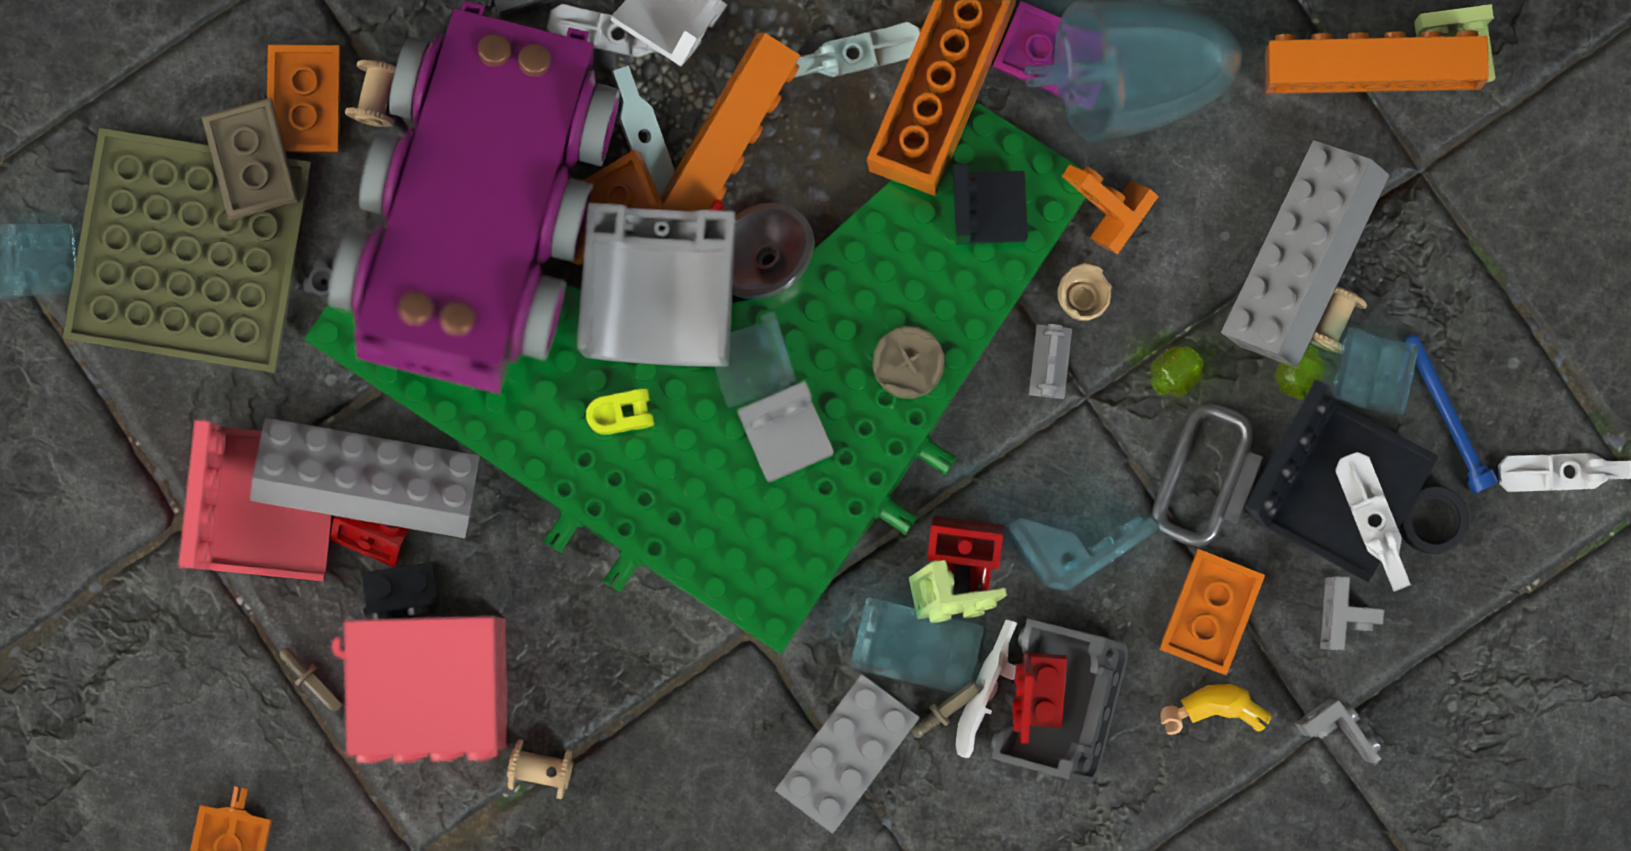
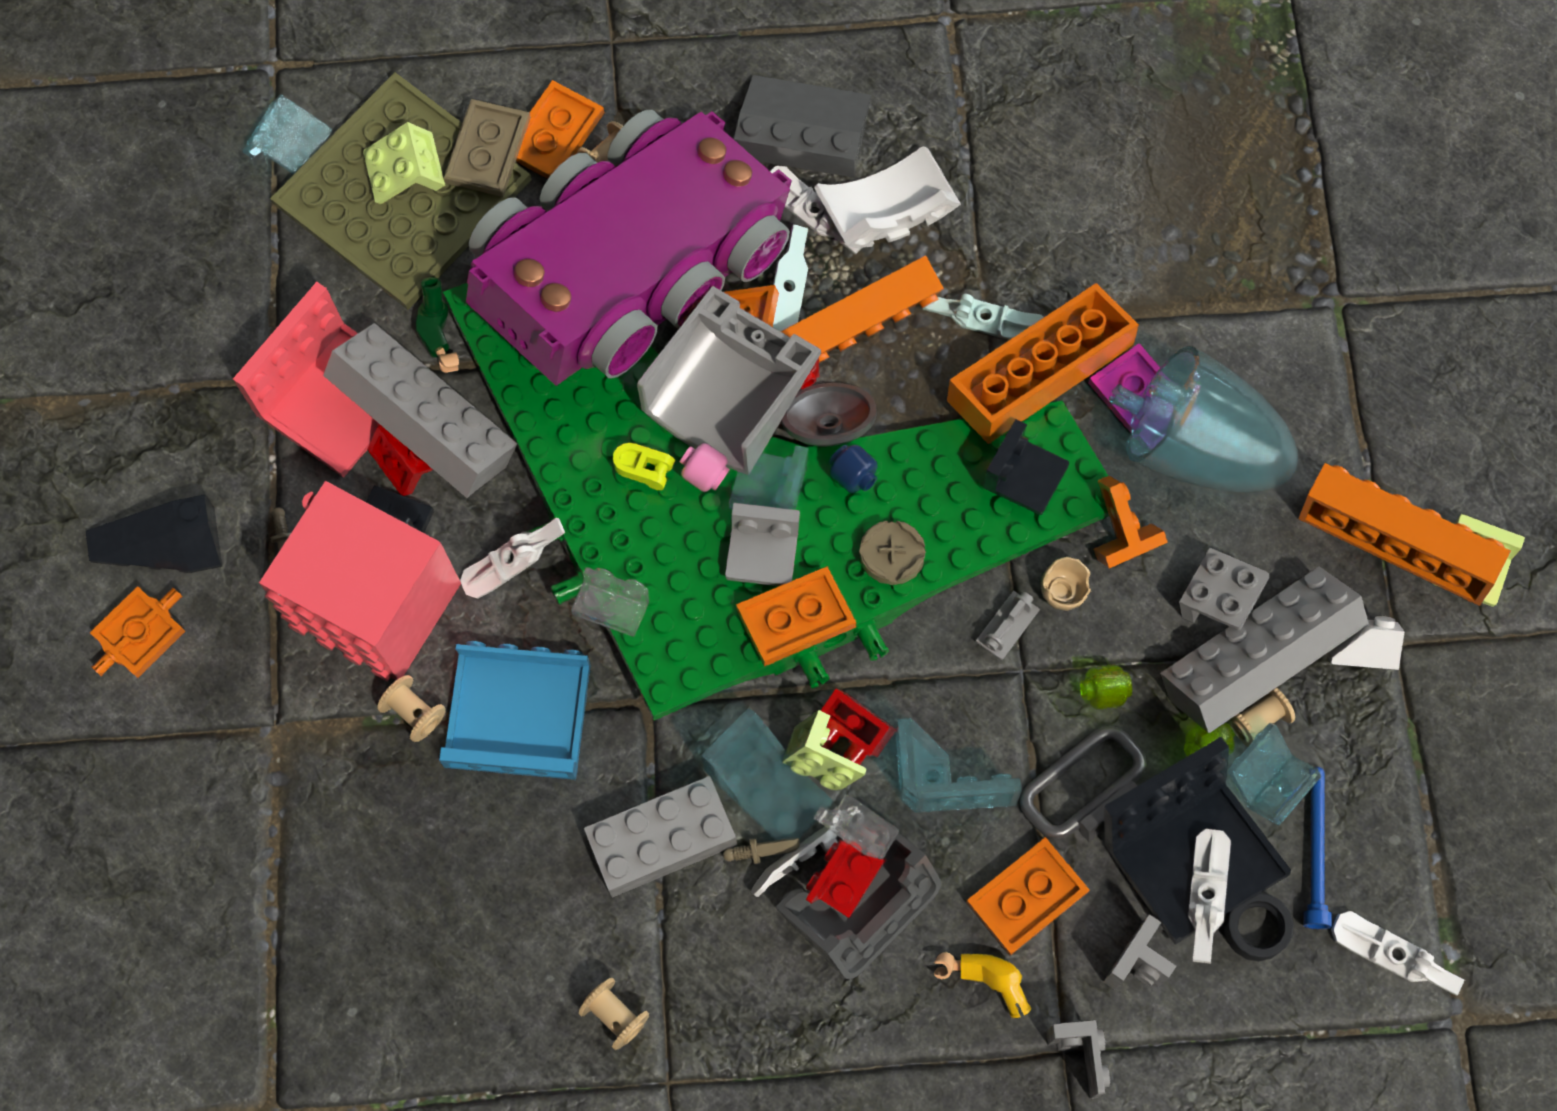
camera: 35 degrees right, 15 degrees down
(177, 227) = (402, 160): none -> yellowish green bracket
(192, 742) = (168, 536): none -> black wedge
(310, 377) = (431, 323): none -> dark green arm
(534, 586) = (497, 566): none -> white piece
(638, 712) = (517, 711): none -> dark azure panel
(676, 569) = (611, 601): none -> clear bracket
(681, 382) = (704, 467): none -> bright pink head
(823, 299) = (853, 468): none -> dark blue head
(857, 482) = (795, 616): none -> orange plate
(1028, 645) = (859, 826): none -> clear bracket
(1238, 217) = (1223, 590): none -> light grey bracket
(1404, 193) = (1373, 646): none -> white slope

